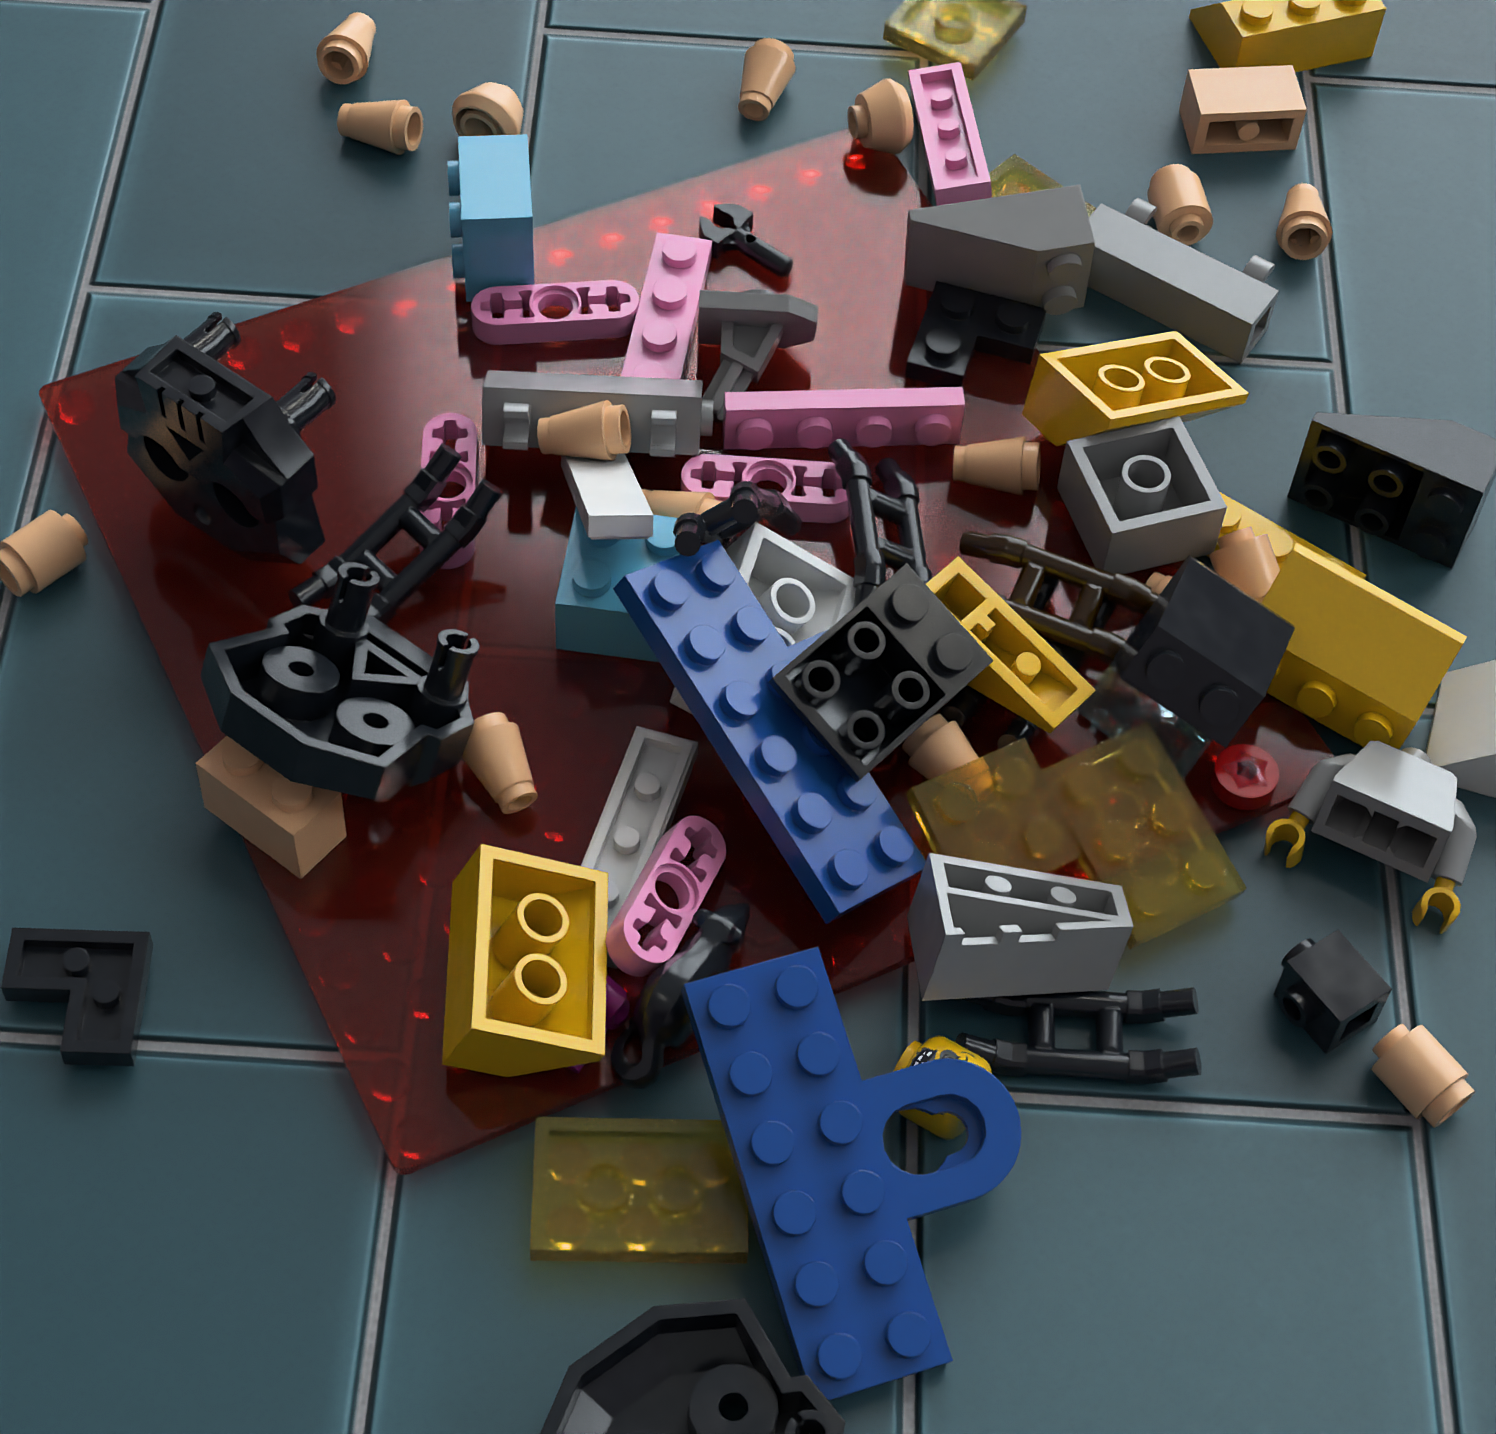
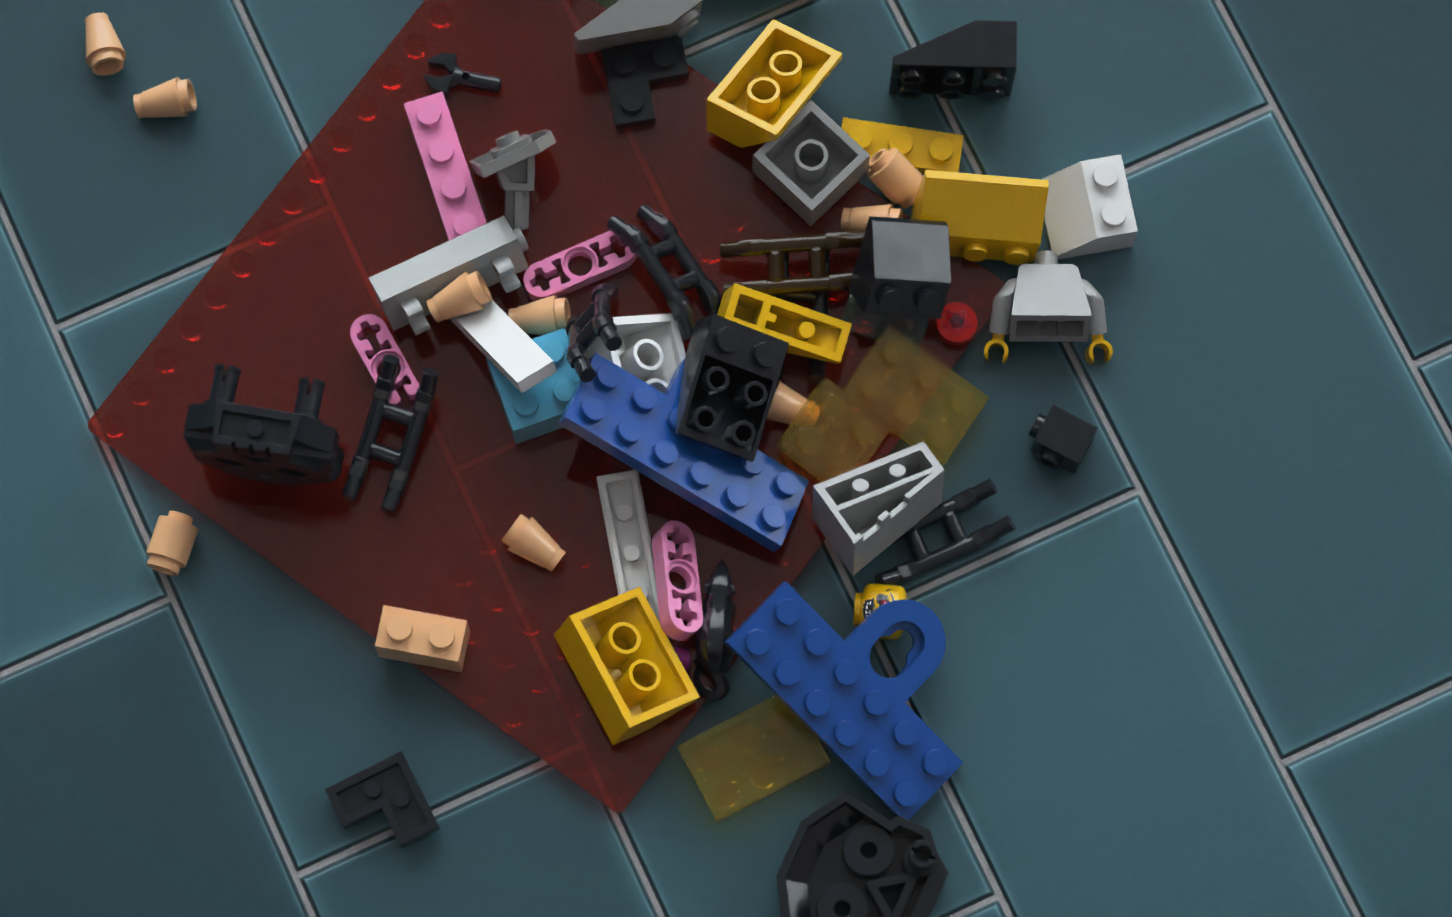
camera: 25 degrees left, 20 degrees up
(344, 696) = (433, 562): black brick -> none
(488, 111) = (235, 58): light nougat cone -> none
(492, 212) = (304, 159): medium azure brick -> none
(514, 299) = (377, 182): bright pink beam -> none
(858, 415) = (588, 200): bright pink plate -> none
(999, 465) = (711, 176): light nougat cone -> none
(1421, 1074) = (1132, 464): light nougat brick -> none

